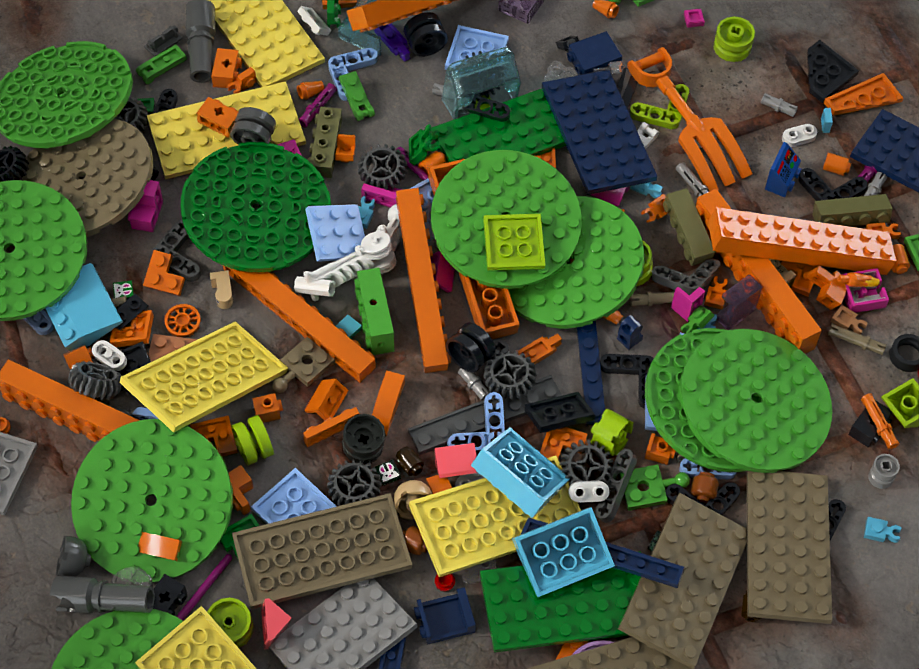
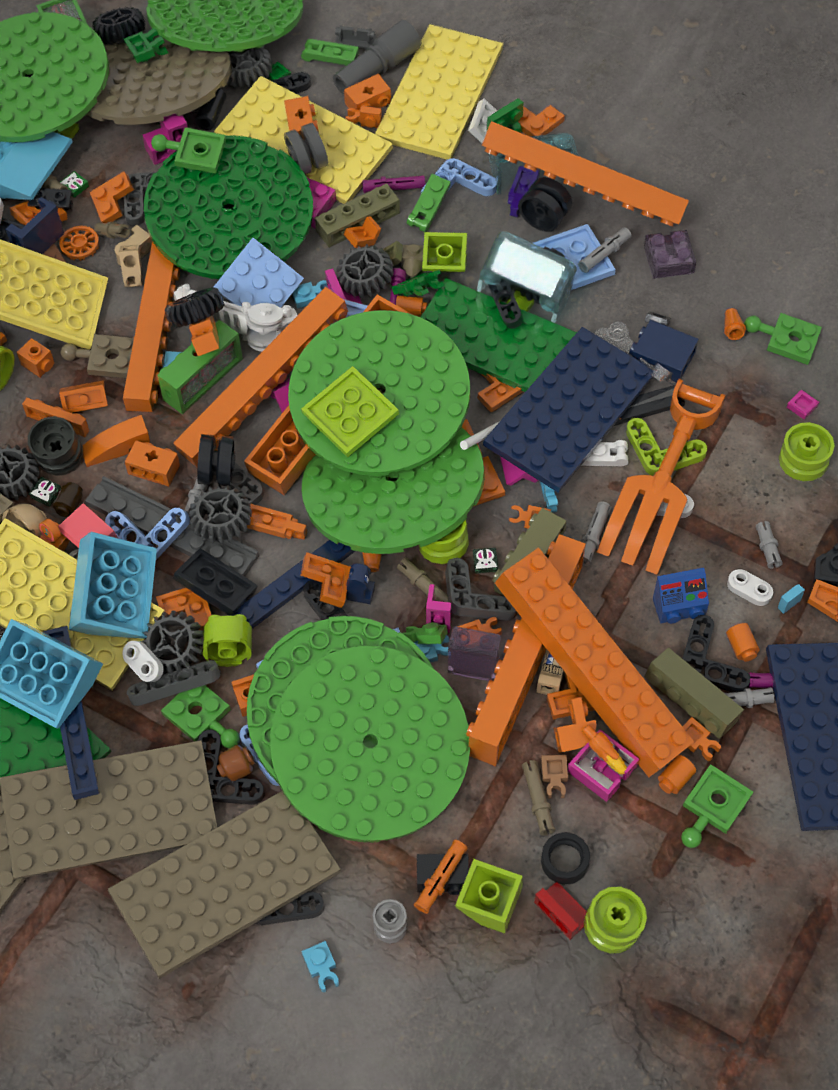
camera: 55 degrees right, 0 degrees up
(49, 165) = (144, 46): none -> green plate
(159, 319) = (39, 232): none -> dark blue panel
(195, 198) = (191, 141): none -> bright green plate
(198, 291) = (112, 230): none -> dark tan pin
(243, 297) = (131, 265): none -> tan leg
(309, 89) = (404, 166): orange cone -> none
(339, 276) = (194, 307): none -> black gear
(369, 284) = (204, 335): none -> orange slope
(378, 139) = (395, 252): none -> olive plate
(392, 136) = (412, 259): none -> dark tan plate
(411, 114) = (445, 252): none -> lime slope
(425, 391) = (152, 463): none -> orange brick
(439, 482) = (50, 530): none -> orange tile
(490, 24) = (611, 244): none -> light grey pin
(579, 185) = (476, 438): none -> white bar
(614, 343) = (331, 574): none -> orange plate
(665, 255) = (485, 560): none -> tile

